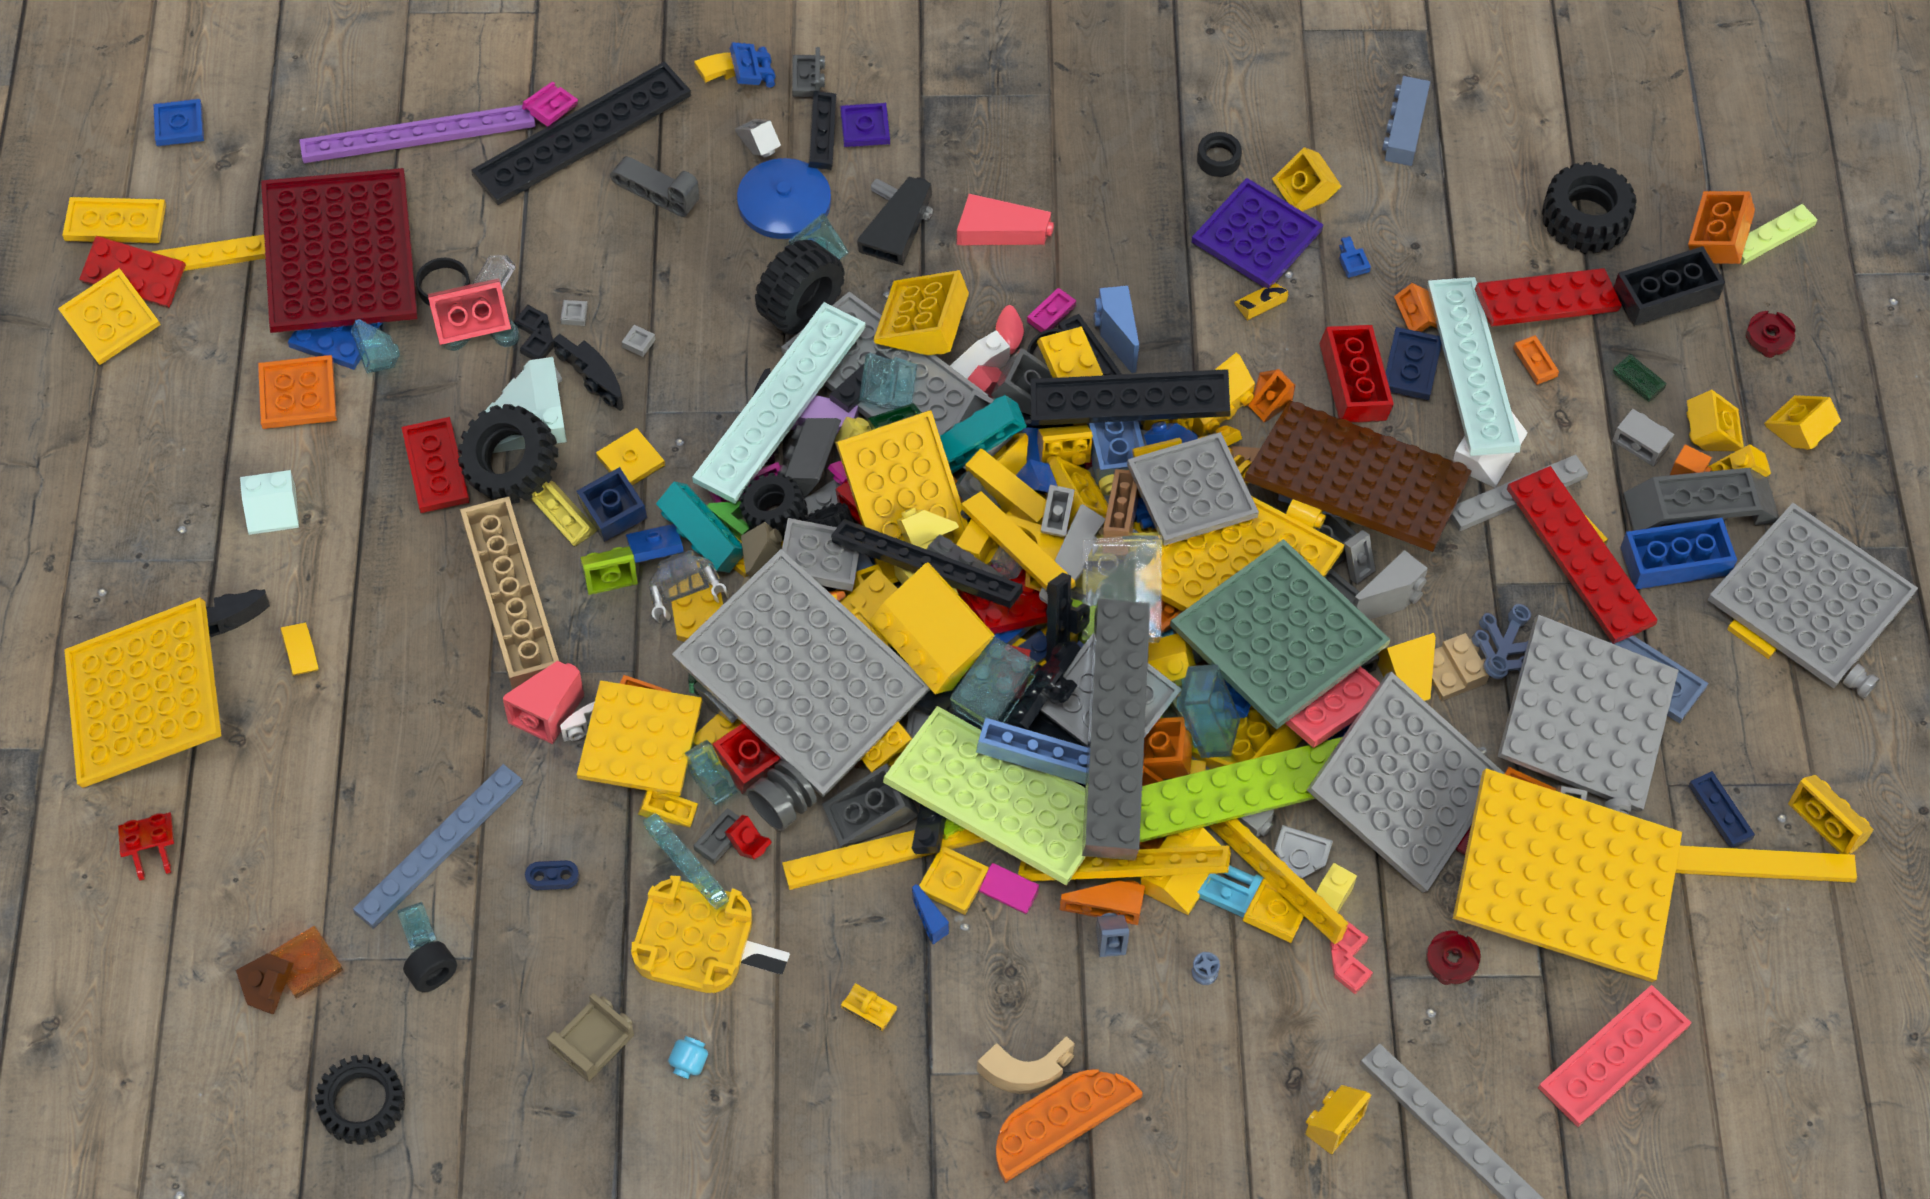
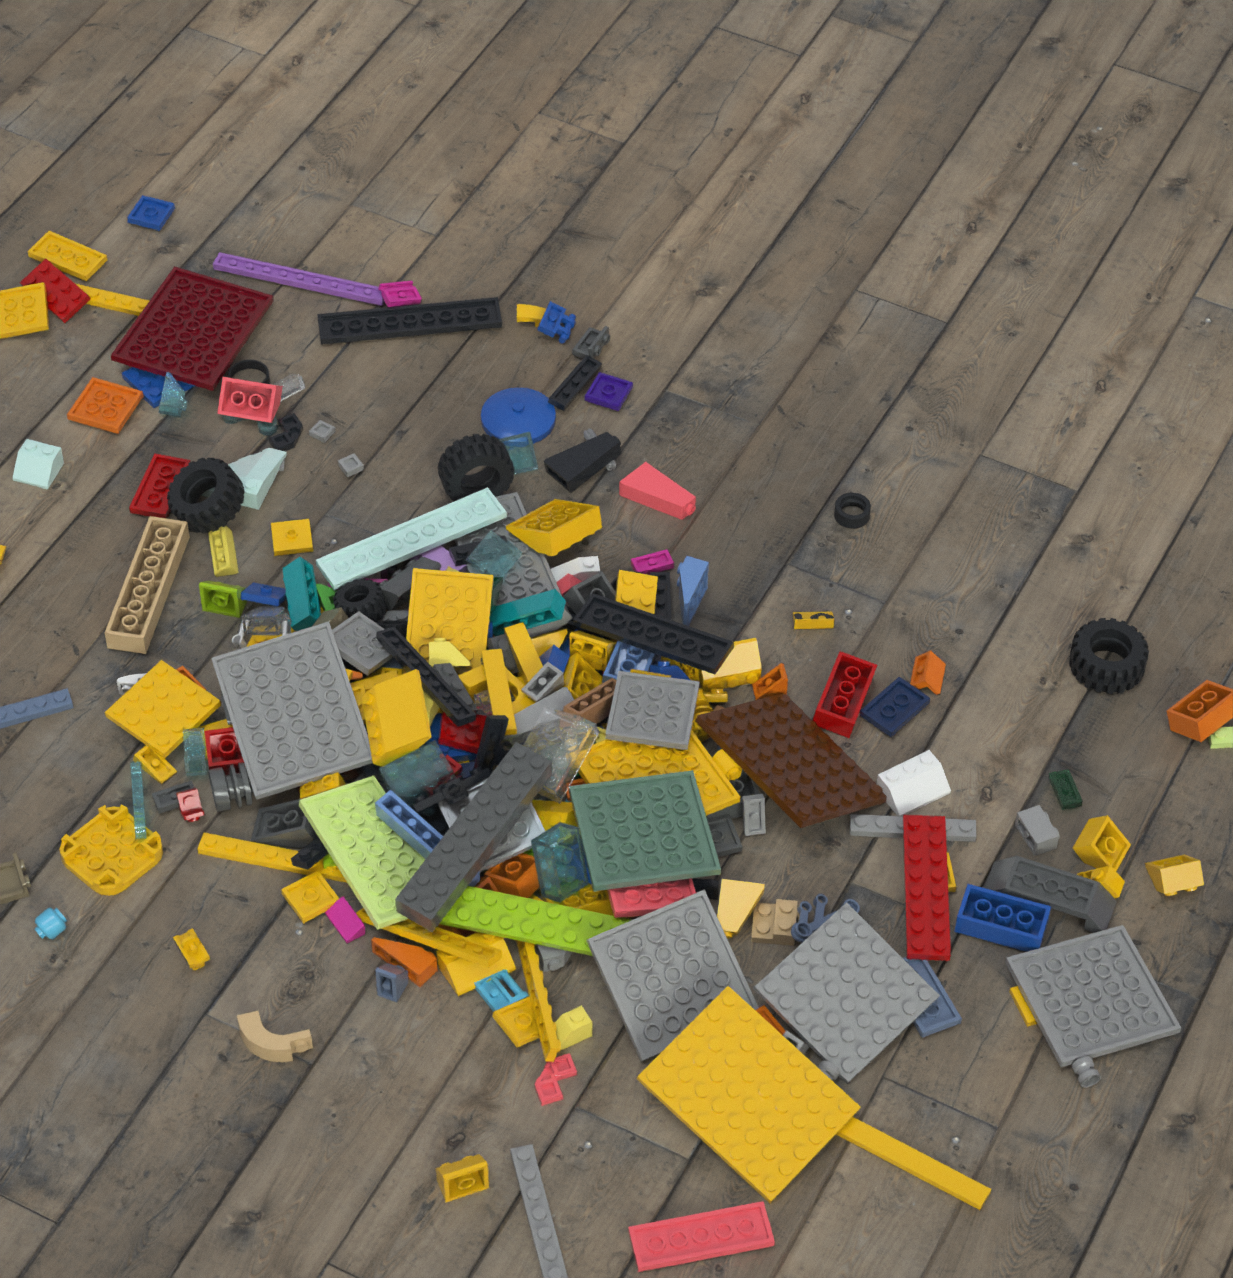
camera: 30 degrees right, 10 degrees down
(545, 701) = (119, 657): coral slope -> none
(552, 873) = (49, 770): dark blue plate -> none
(596, 371) = (305, 470): black slope -> none
(612, 504) = (254, 557): dark blue brick -> none
(672, 194) = (439, 379): dark grey beam -> none
(759, 137) = (527, 371): slope -> none
(765, 957) = (150, 888): sticker -> none
(933, 920) = (275, 916): blue slope -> none
(1010, 327) = (613, 562): coral arm -> none
(1060, 1117) = (270, 1082): orange plate -> none
(1209, 963) = (439, 1031): sand blue wheel -> none
(1257, 233) = (842, 573): dark purple plate -> none
(1302, 851) = (568, 991): light grey plate -> none
(1306, 180) = (904, 553): yellow slope -> none
(1352, 260) = (901, 620): blue plate -> none
(1393, 588) = (758, 846): light grey slope -> none
(1407, 120) = (1011, 543): sand blue brick -> none
(1448, 971) = (629, 1125): dark red plate -> none
(1473, 367) = (932, 723): light aqua plate -> none
(1536, 360) = (992, 743): orange plate -> none
(1547, 297) = (1031, 704): red plate -> none
(1668, 286) = (1132, 734): black brick -> none
(1691, 461) = (1061, 860): orange brick -> none
(1721, 810) = (908, 1110): dark blue plate -> none
(1768, 344) = (1193, 812): dark red plate -> none
(1830, 815) = (990, 1150): yellow slope -> none

